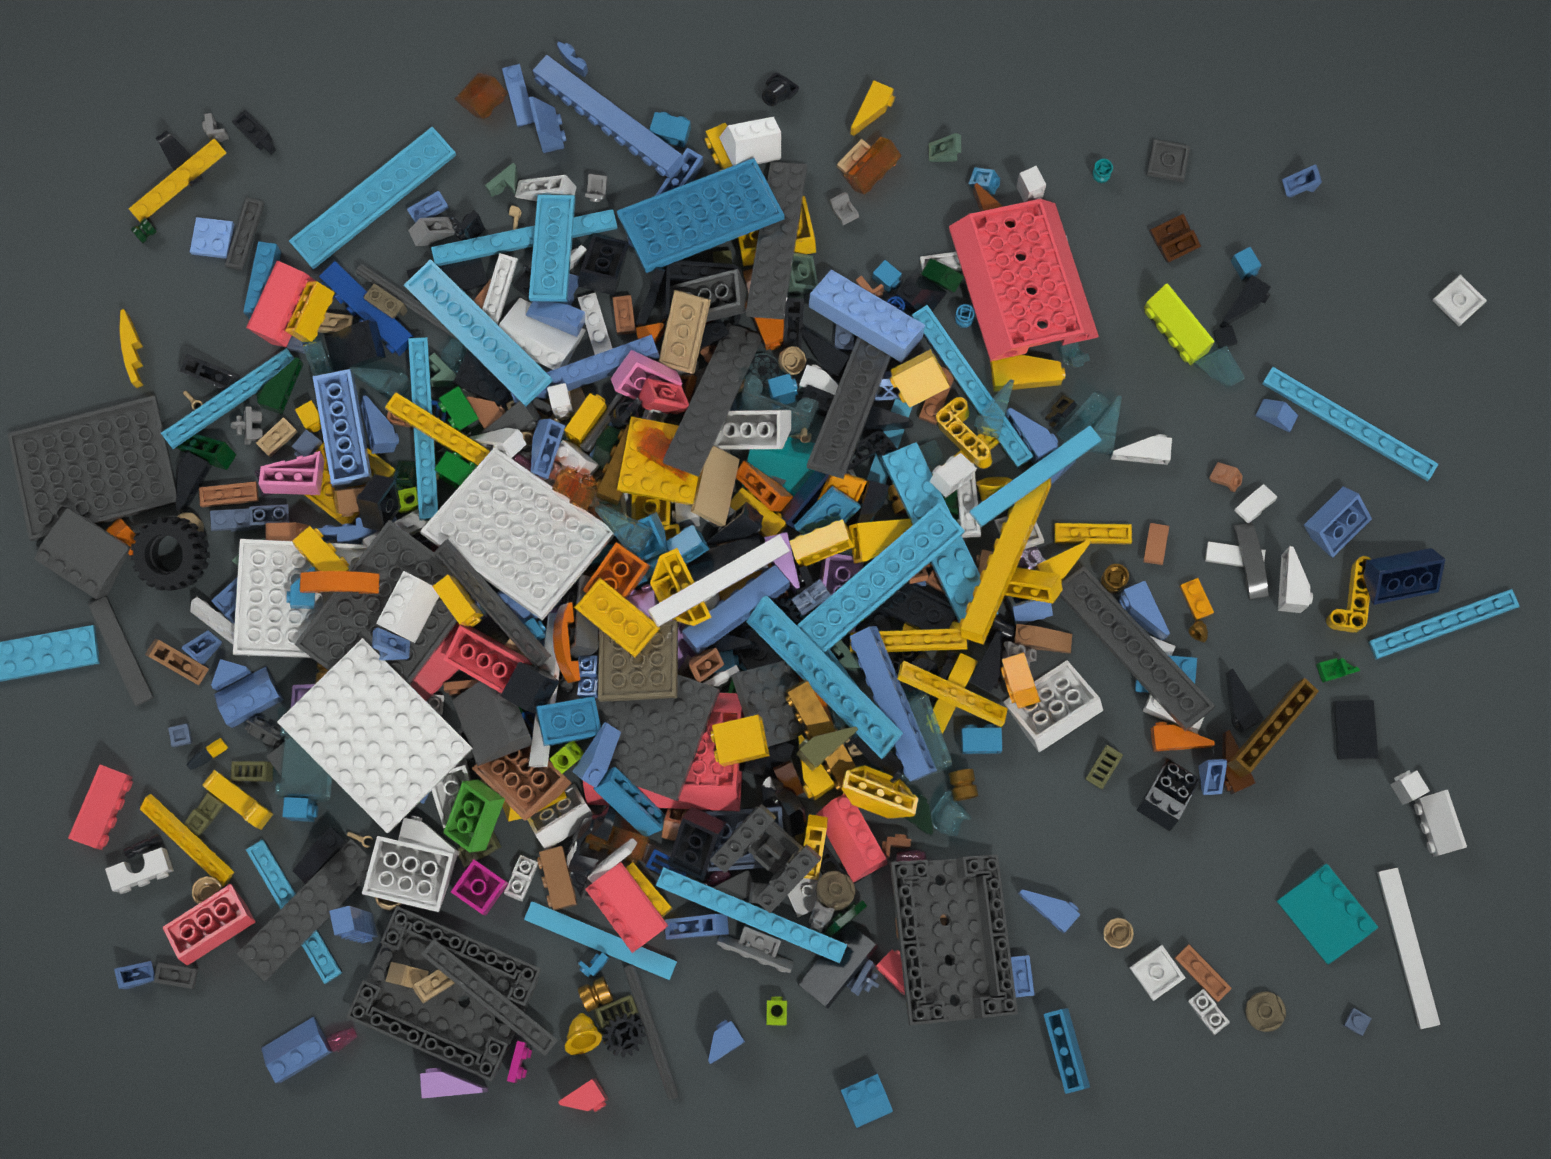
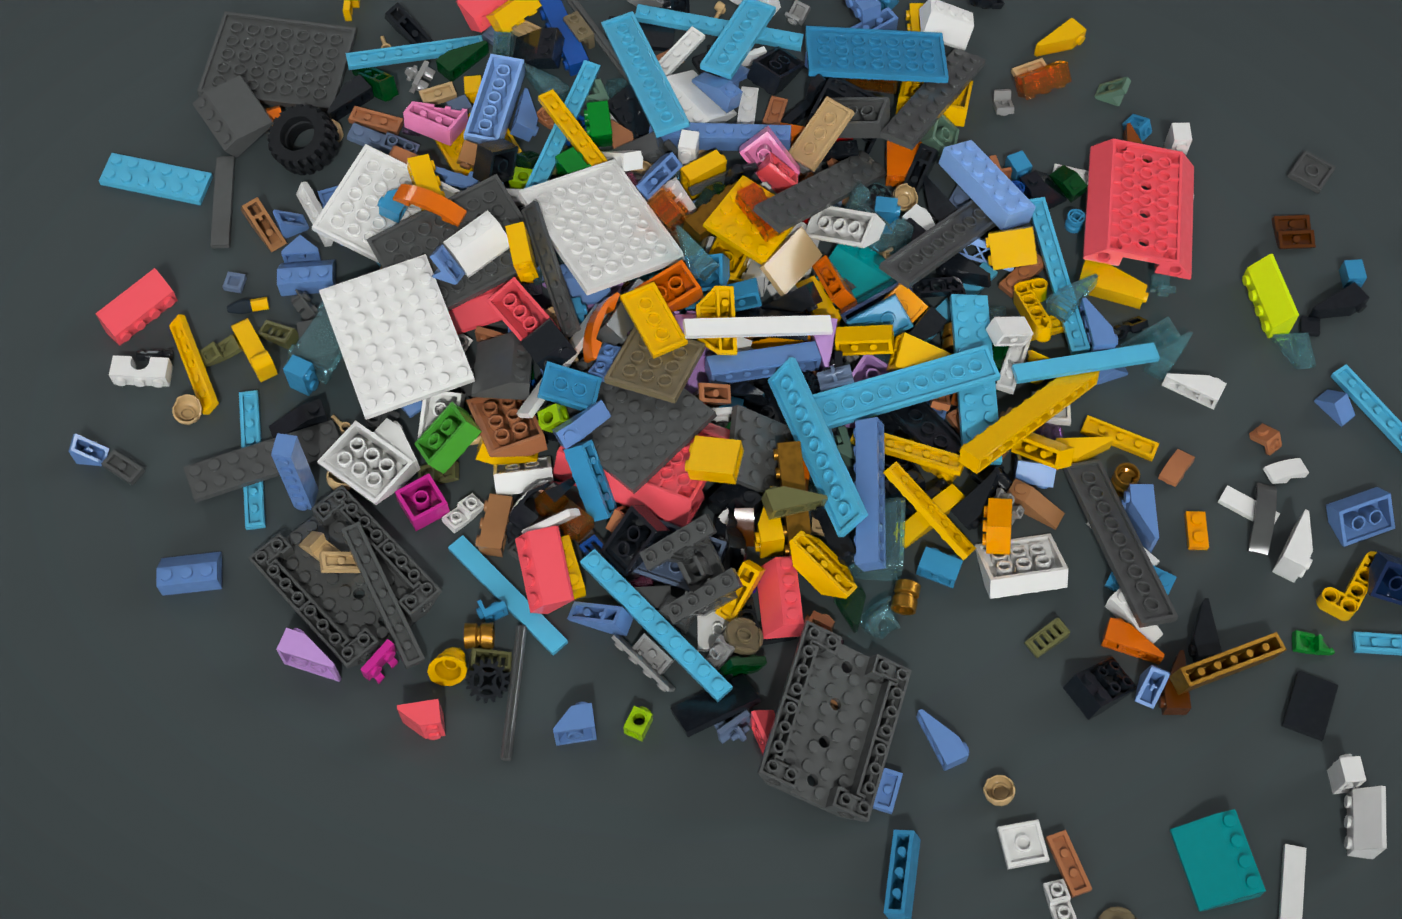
camera: 20 degrees right, 15 degrees down
(208, 925) = (173, 436): coral slope -> none
(341, 1039) = (233, 579): clear pink cone -> none
(866, 1100) = (686, 838): dark azure slope -> none
(1102, 166) = (1247, 156): teal wheel -> none
(1199, 631) = (1189, 557): pearl gold piece -> none

